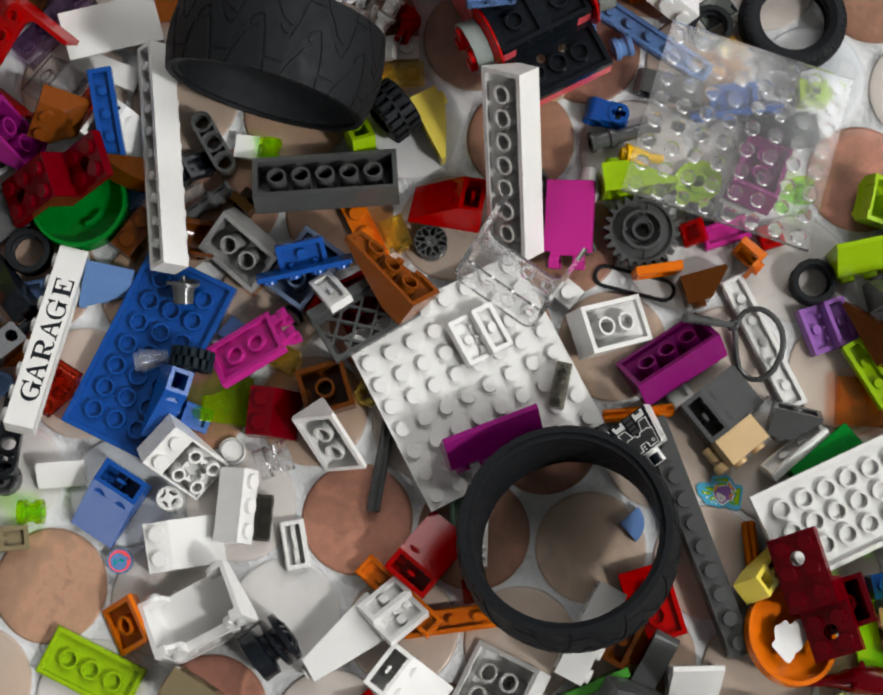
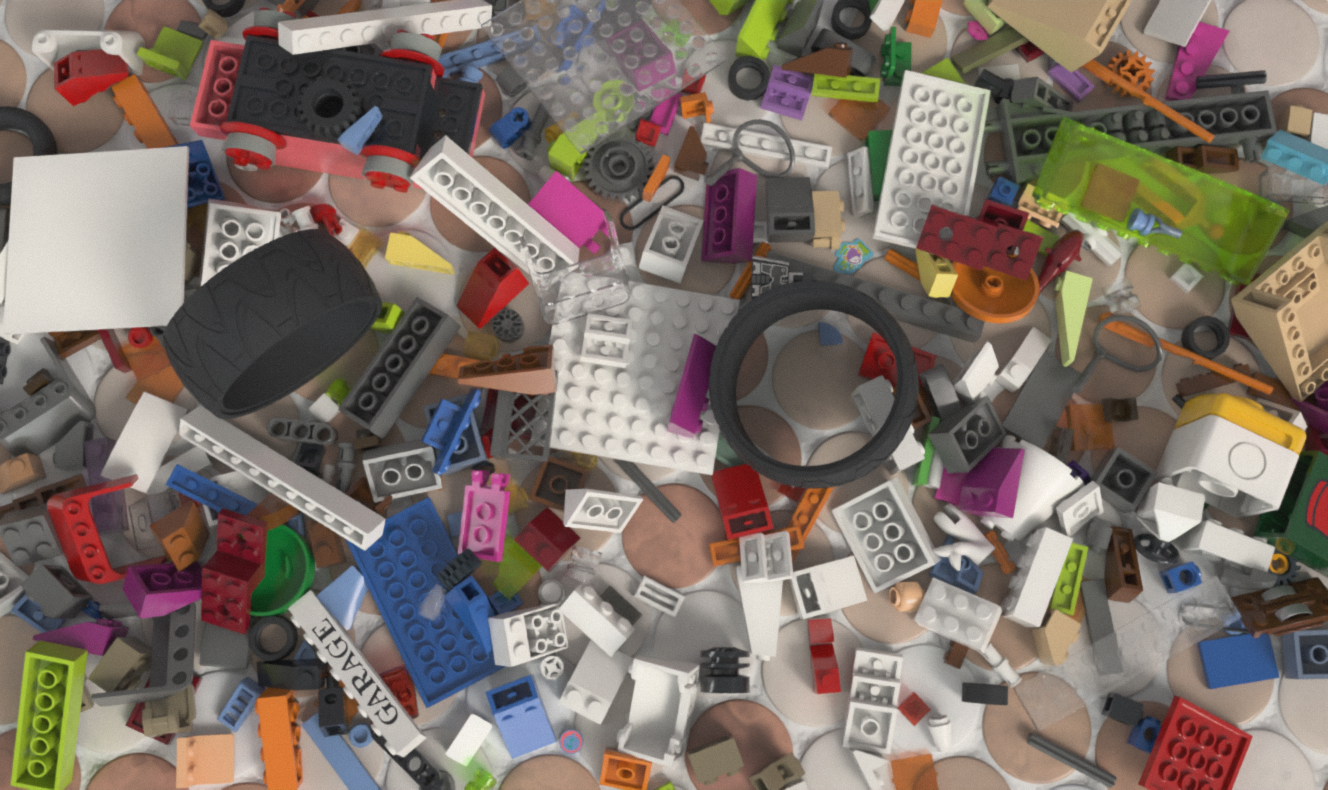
camera: 55 degrees left, 0 degrees up
(183, 290) = (399, 537): dark grey piece -> none
(331, 291) = (490, 424): white plate -> none
(395, 112) = (391, 275): black tyre -> none
(559, 385) = (689, 310): clear smoke piece -> none
(789, 639) = (995, 285): white sticker -> none
(791, 421) = (838, 168): dark grey slope -> none

